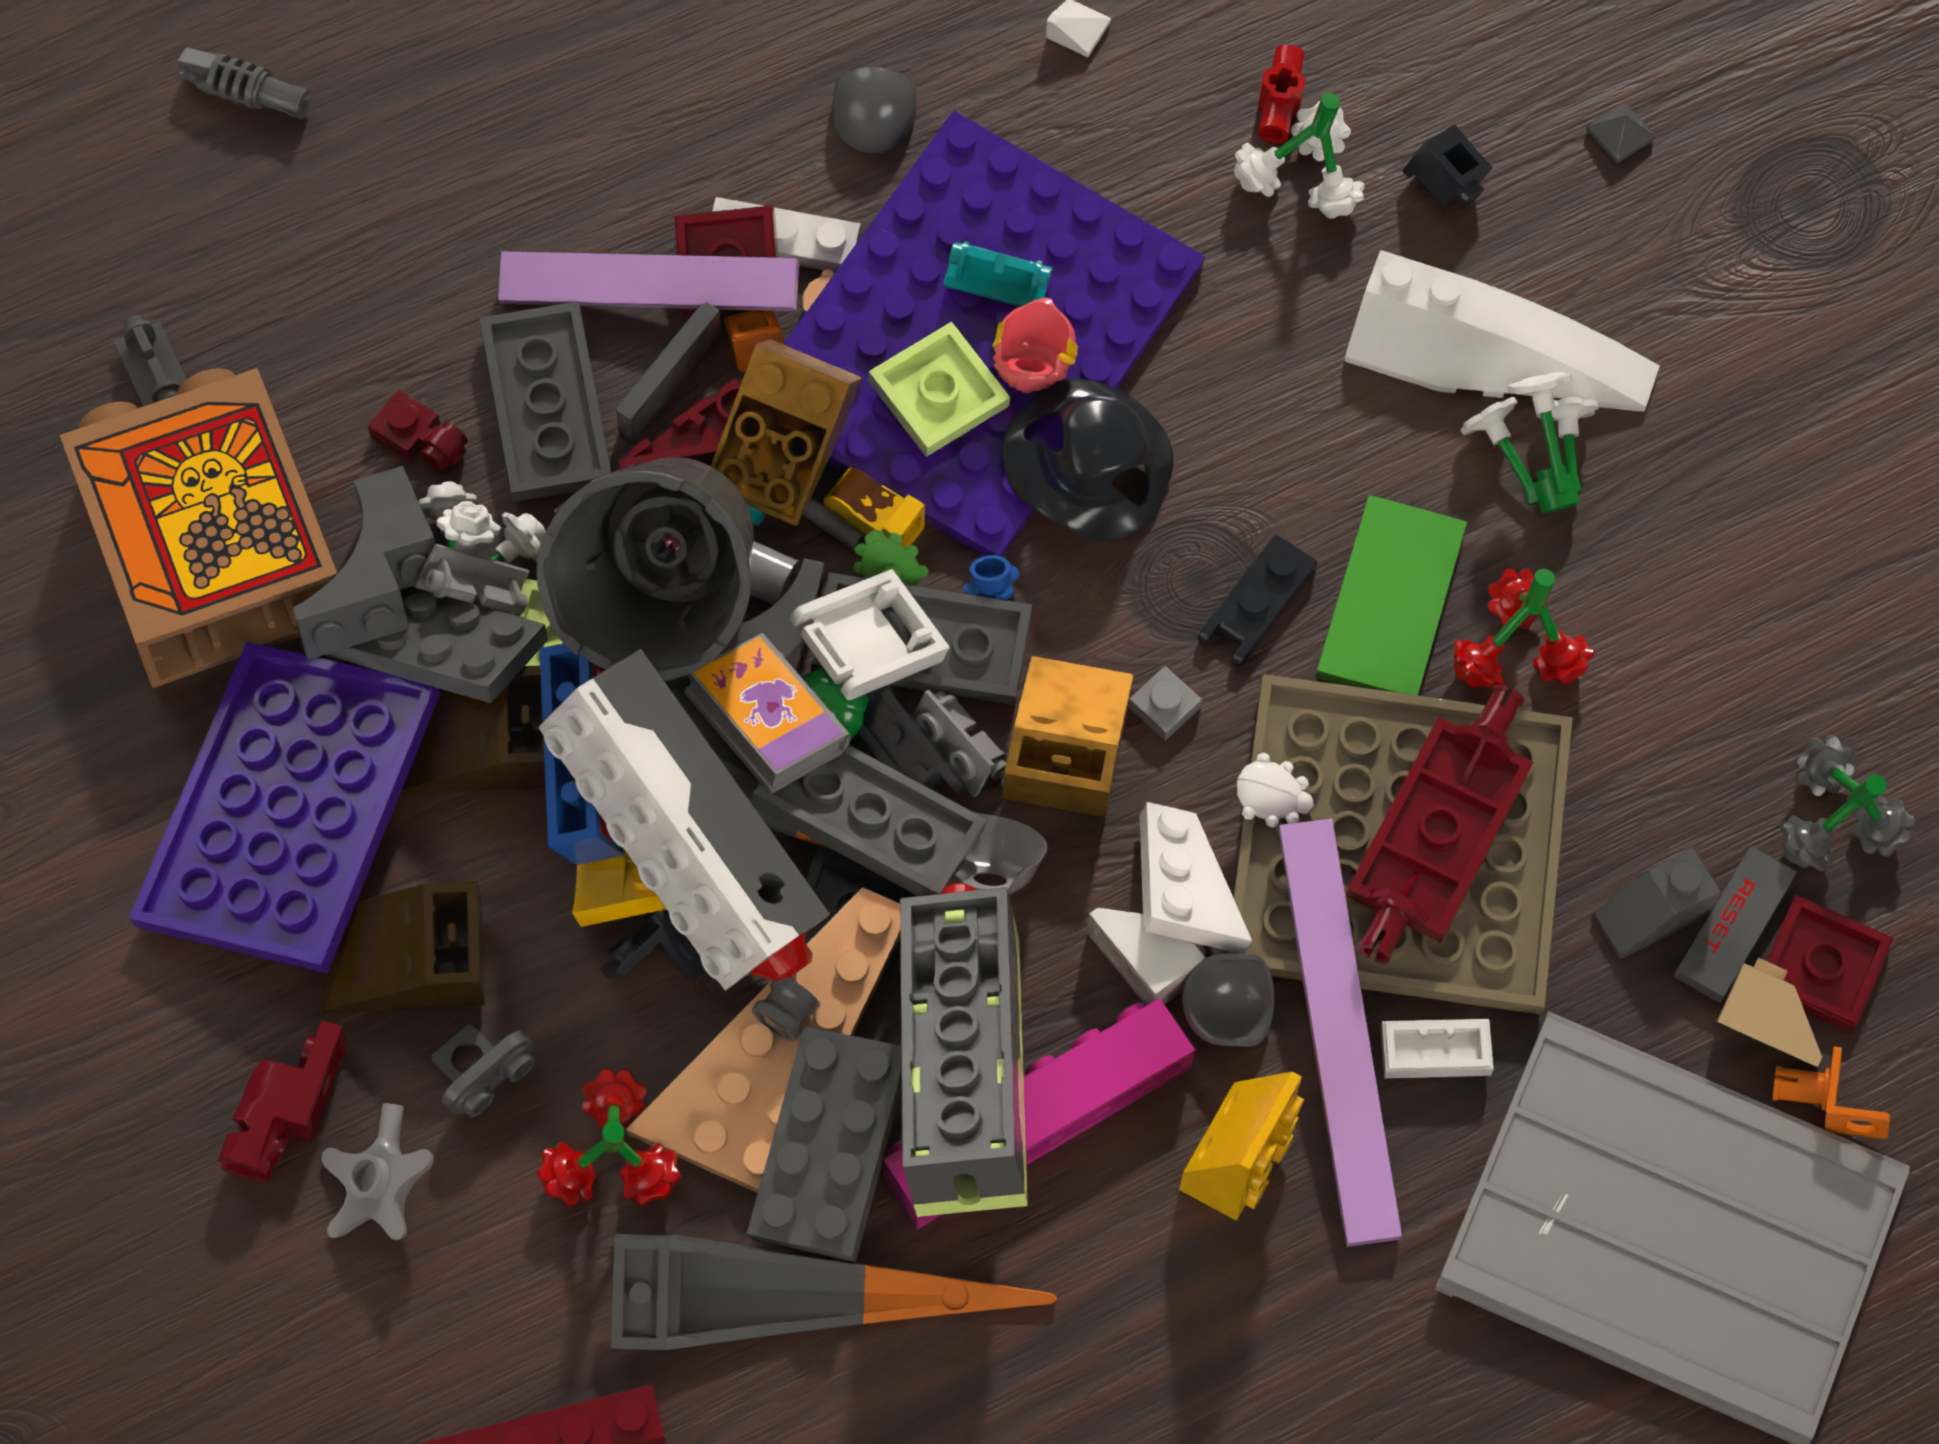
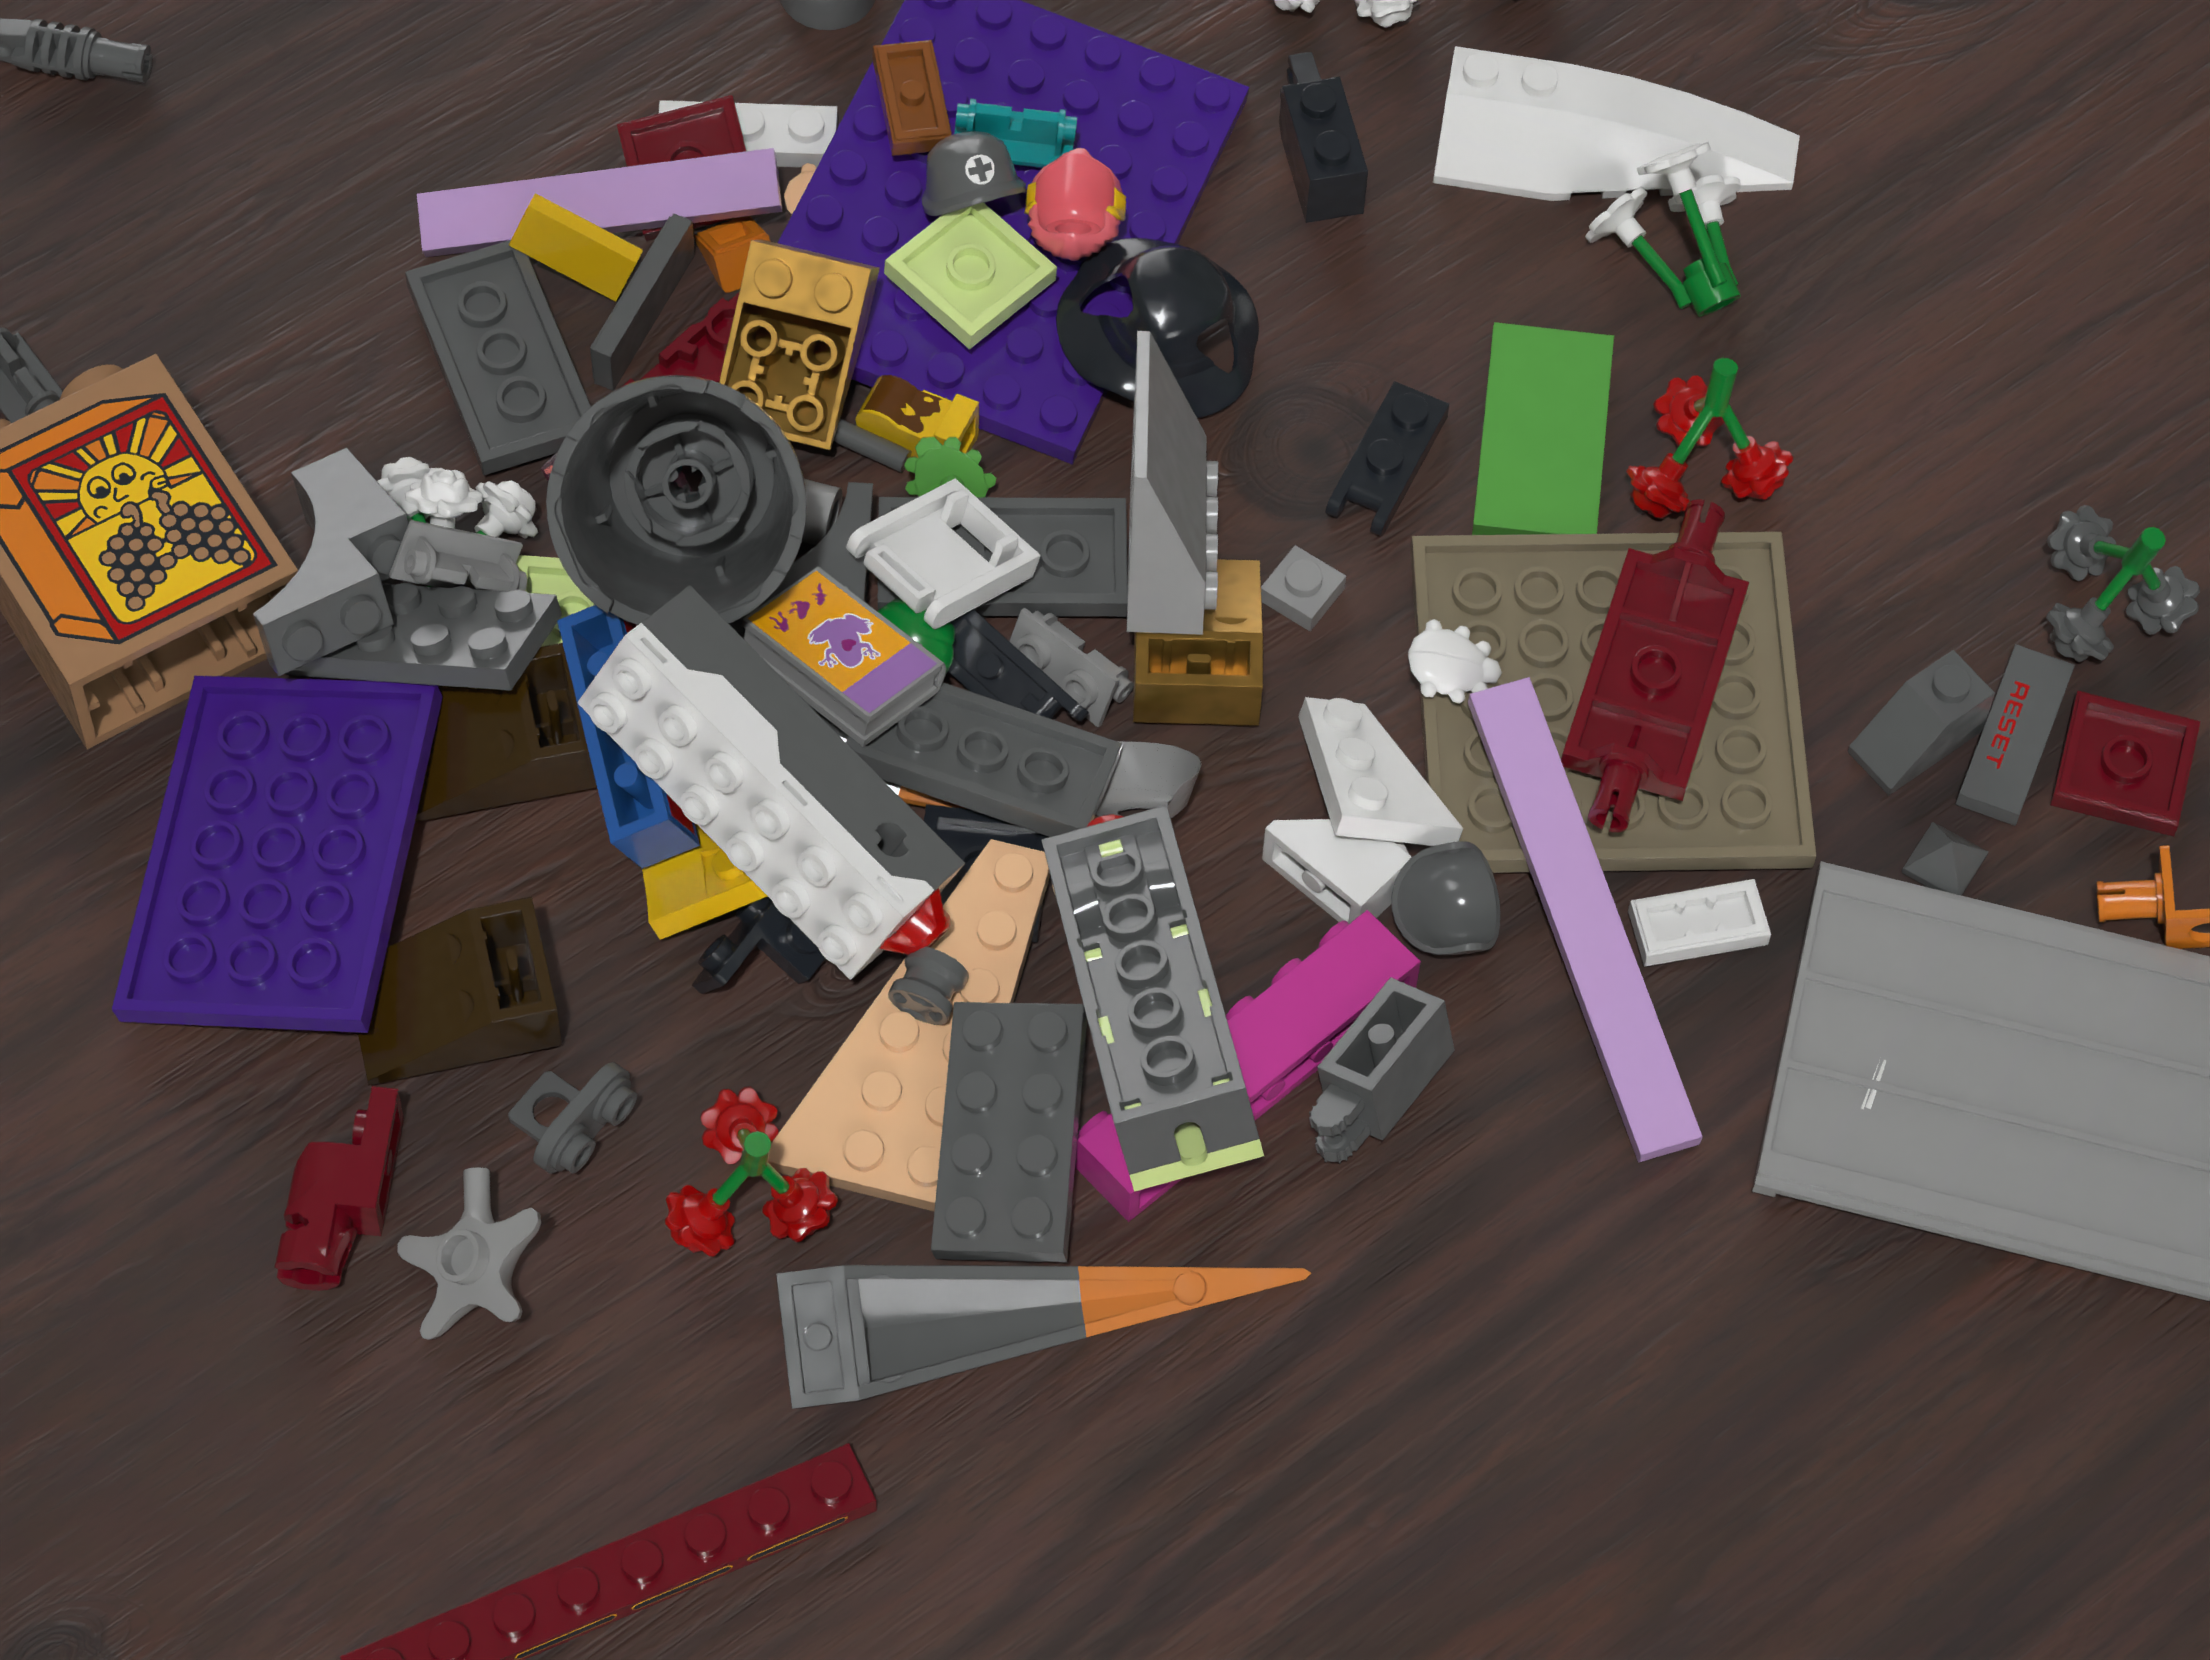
camera: 10 degrees left, 5 degrees down
(409, 425) = (343, 407): dark red plate -> none
(620, 318) = (575, 247): none -> yellow tile
(918, 230) = (911, 96): none -> dark orange plate
(951, 306) = (967, 172): none -> dark grey helmet
(991, 578) = (1071, 476): blue plate -> none
(1060, 621) = (1170, 505): none -> light grey slope
(1143, 1136) = (1379, 1068): none -> dark grey hinge
(1242, 1141) = (1500, 1055): yellow slope -> none
(1254, 315) = (1321, 143): none -> black hinge
(1654, 1026) = (1944, 861): none -> dark grey slope
(1770, 1011) = (2078, 821): tan slope -> none

